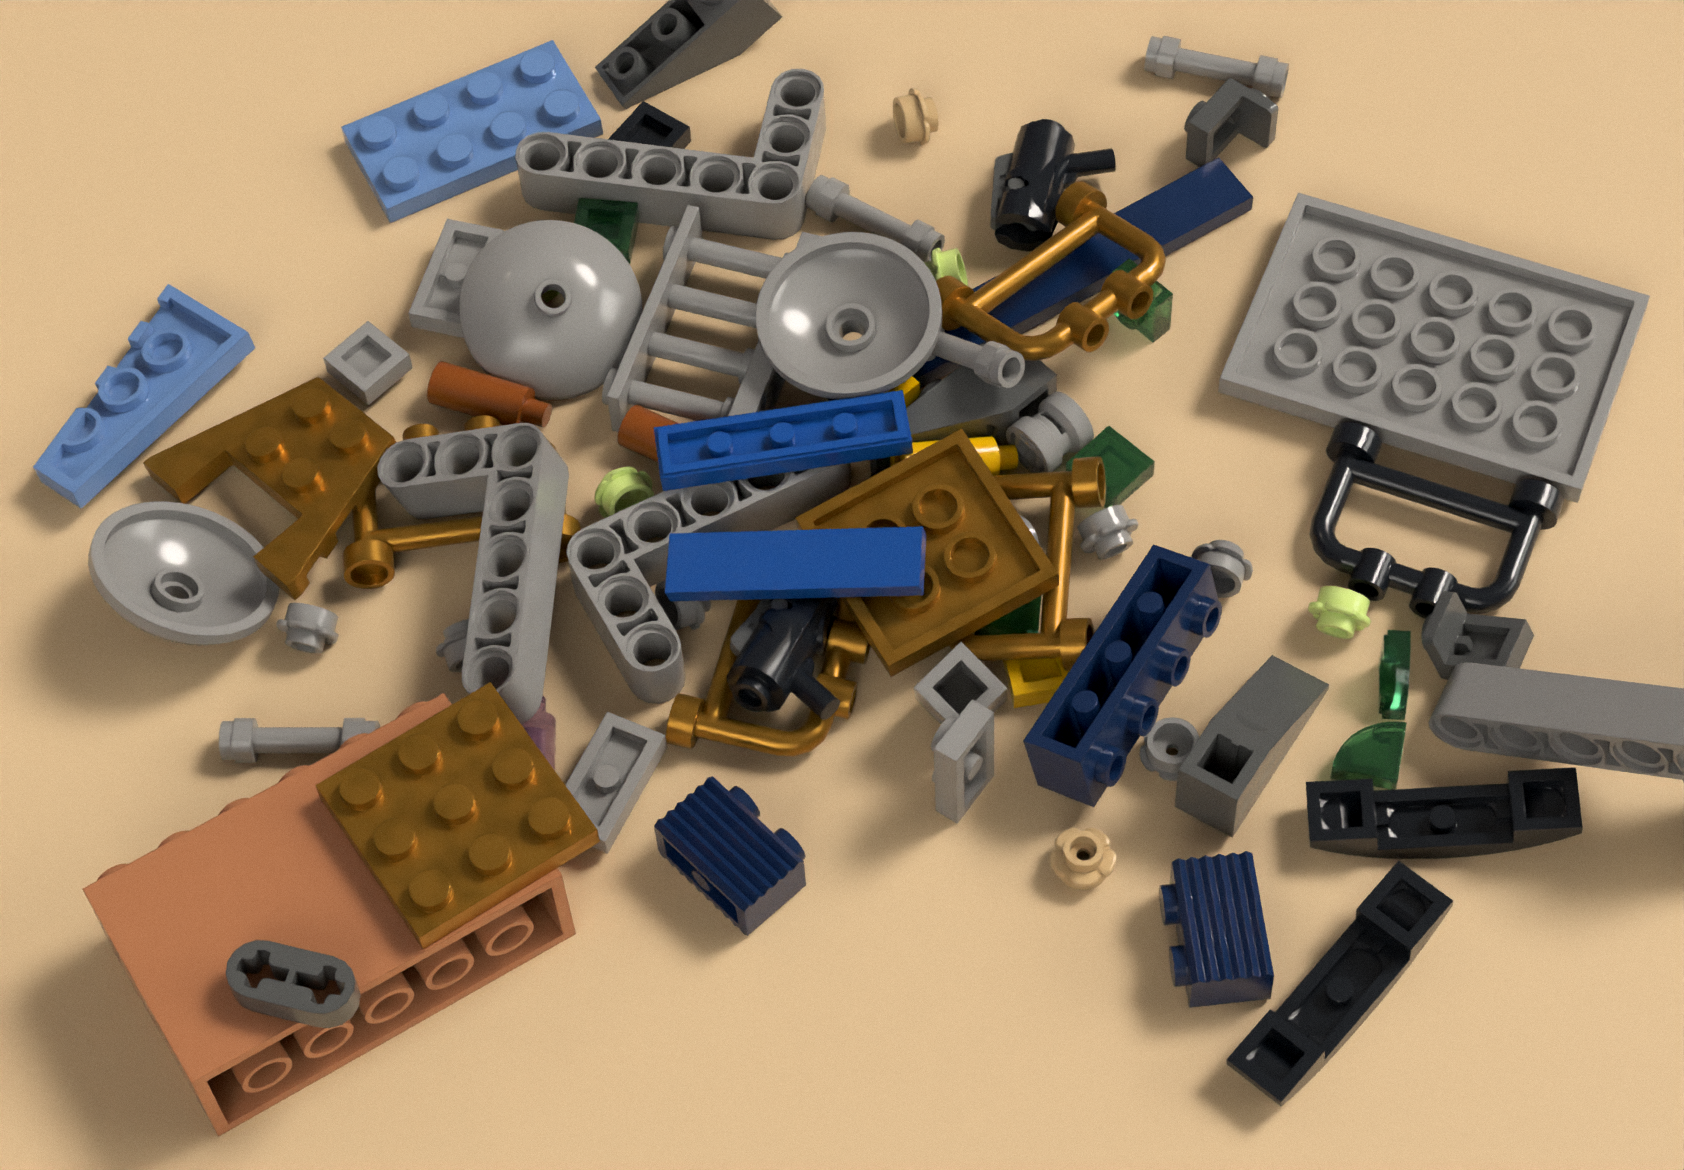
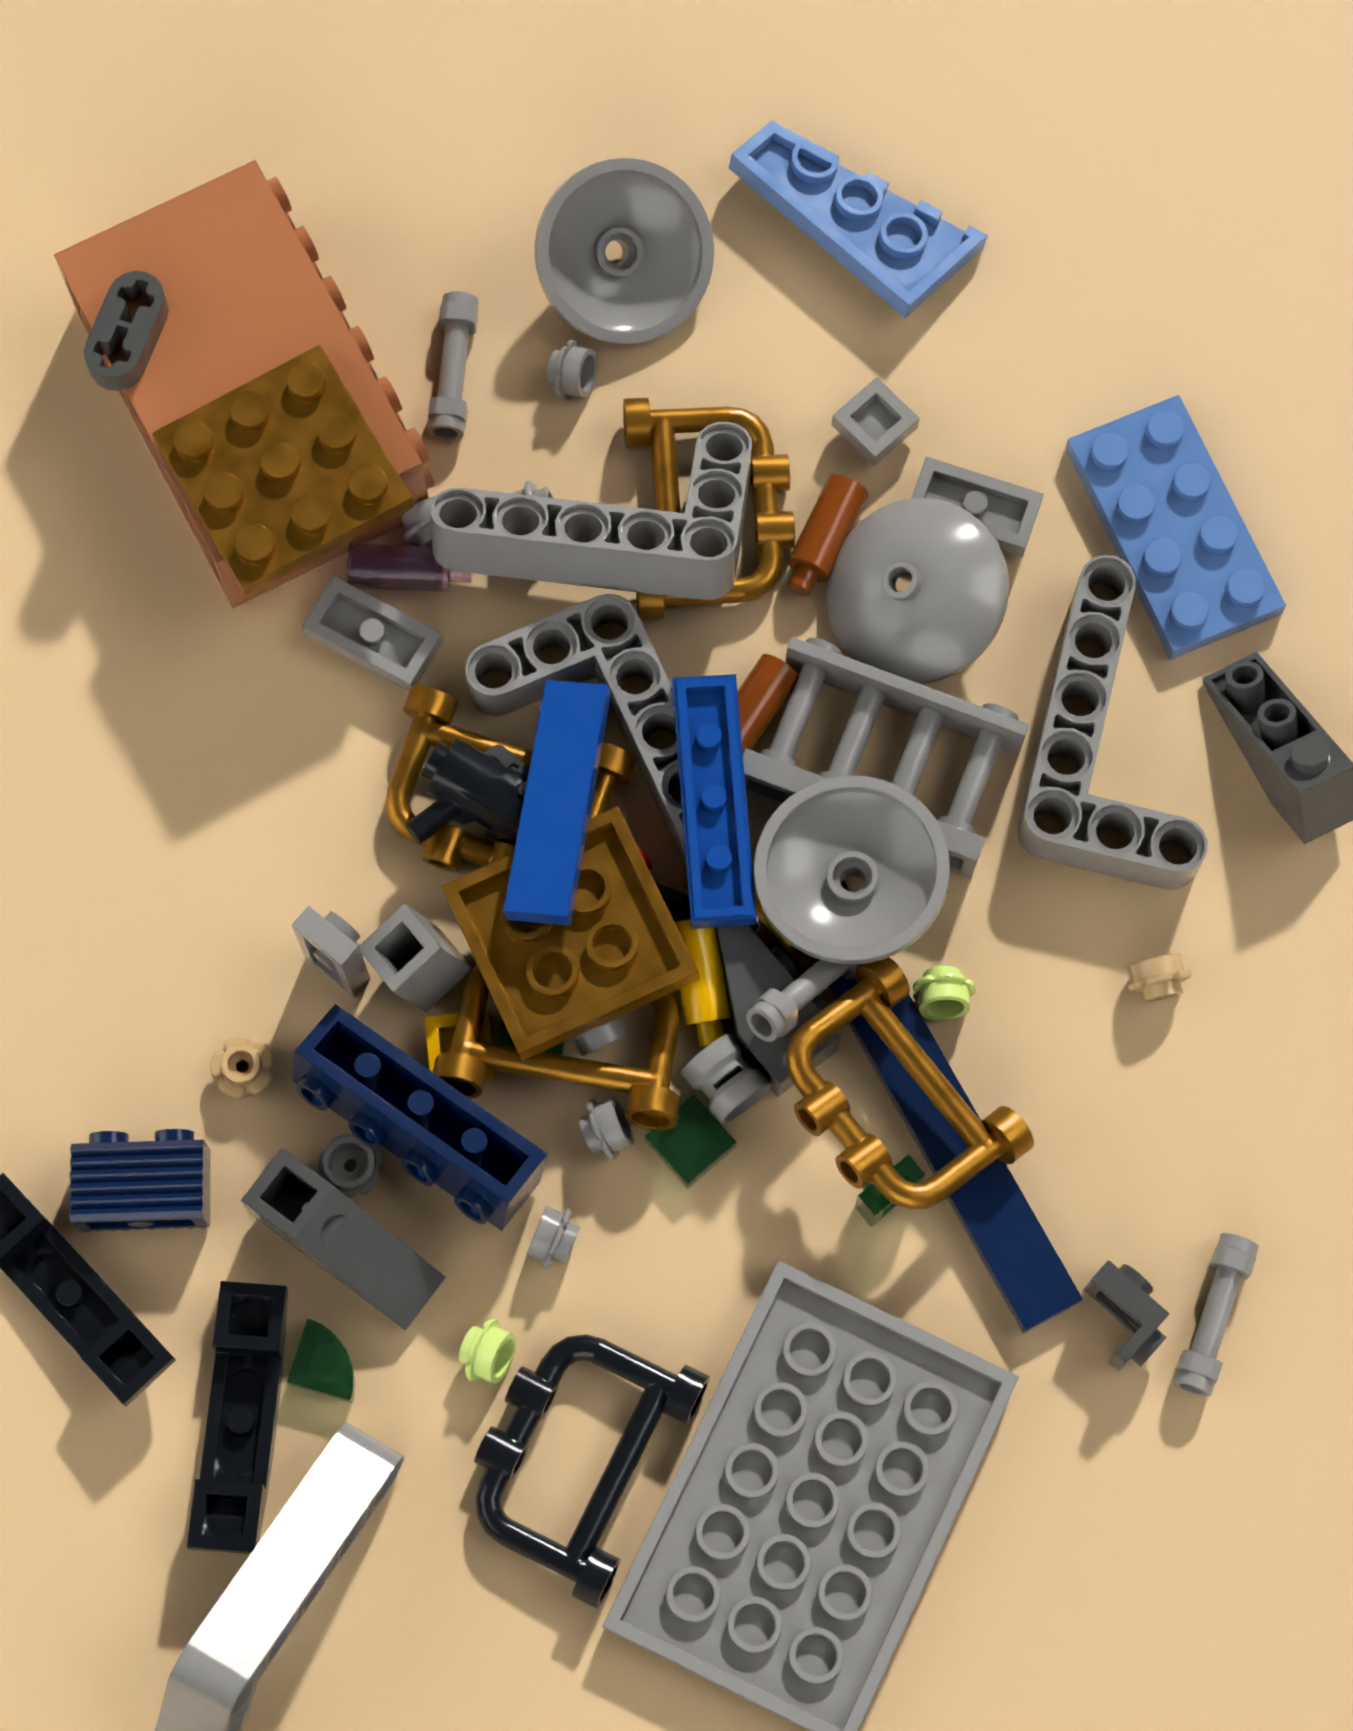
camera: 90 degrees right, 15 degrees up
(305, 452) = (759, 366): pearl gold wing -> none
(612, 220) = (1025, 651): clear green plate -> none
(622, 489) = (695, 656): yellowish green plate -> none
(653, 127) = (1151, 703): black tile -> none
(731, 853) = (279, 741): dark blue brick -> none
(832, 199) = (1053, 885): light grey bar -> none
(1033, 180) = (1058, 1092): black piece -> none
(1394, 674) = (408, 1396): clear green tile -> none
(1459, 637) = (429, 1482): dark grey bracket -> none

